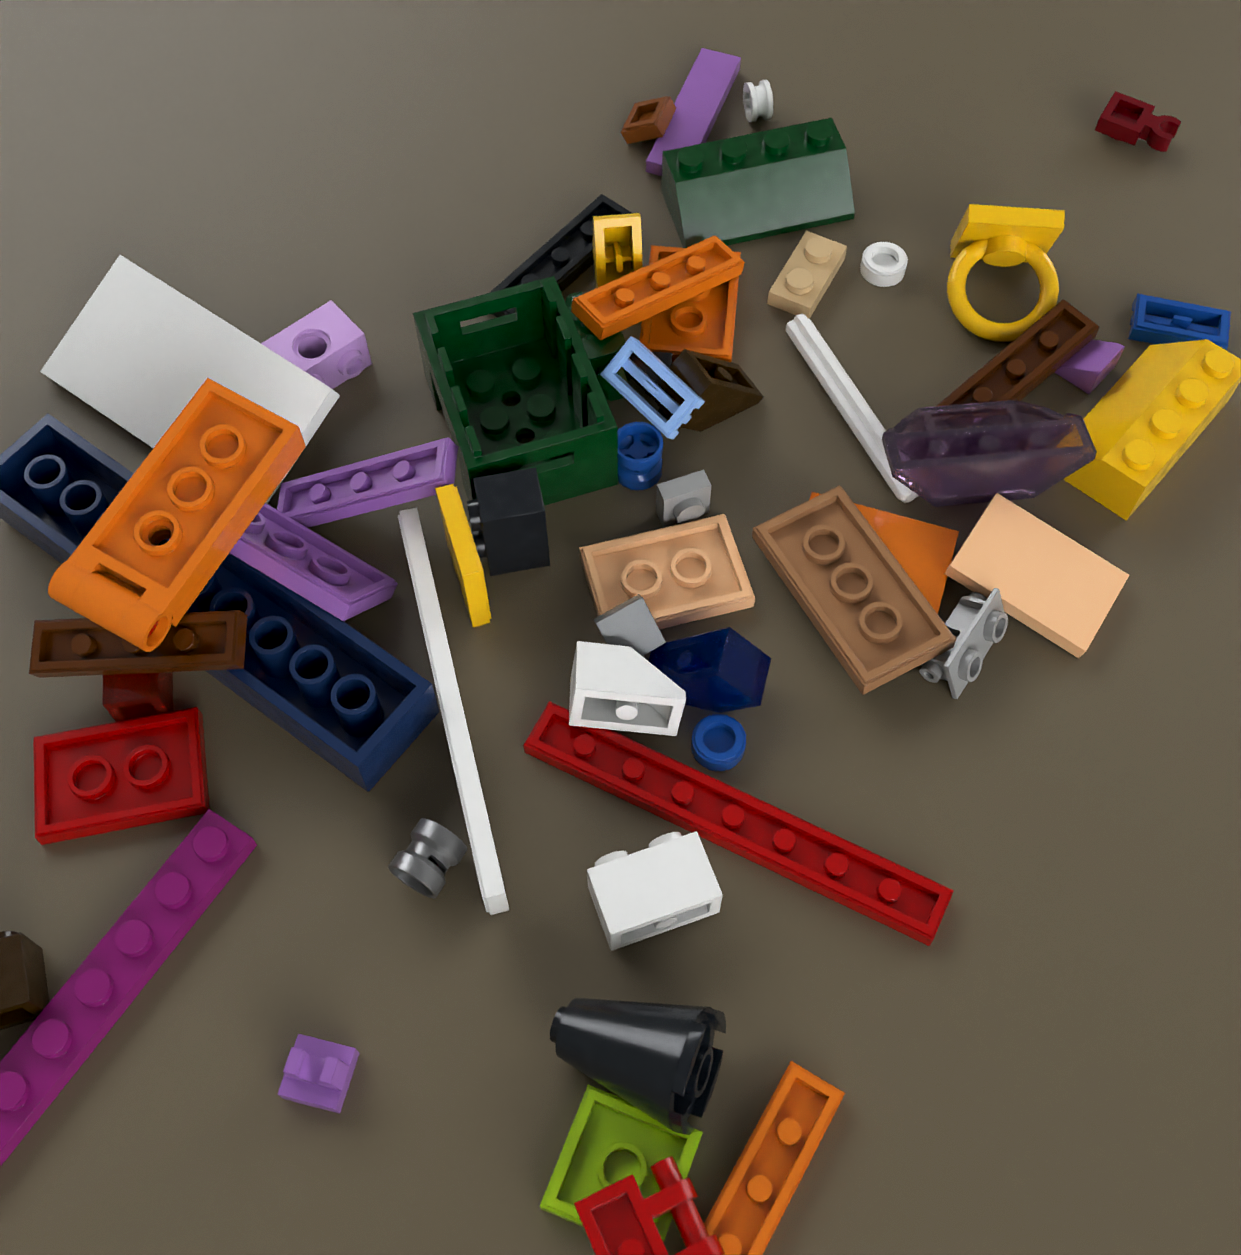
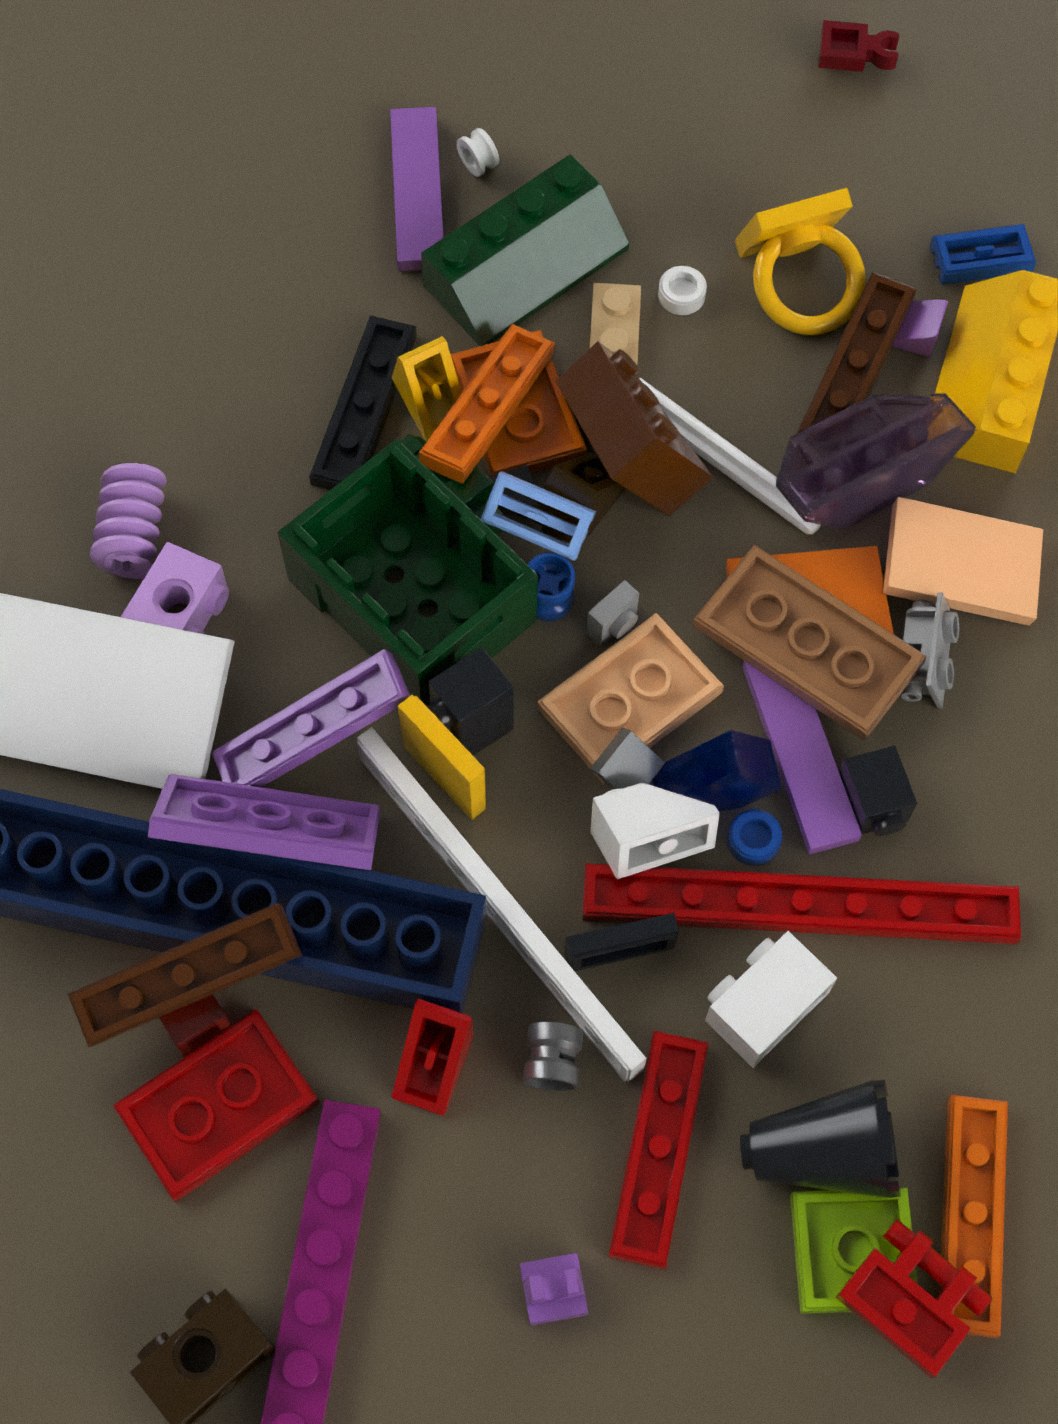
camera: 25 degrees left, 5 degrees up
(195, 490) = (181, 806): orange hinge -> none
(314, 273) = (128, 519): none -> lavender piece
(321, 811) = (432, 1057): none -> red slope
(482, 989) = (658, 1151): none -> red tile
(543, 782) = (621, 942): none -> black tile
(648, 120) = (376, 213): dark orange tile -> none
(775, 354) = (631, 429): none -> reddish brown wedge
(797, 699) = (804, 765): none -> medium lavender tile
(853, 745) = (878, 791): none -> black brick

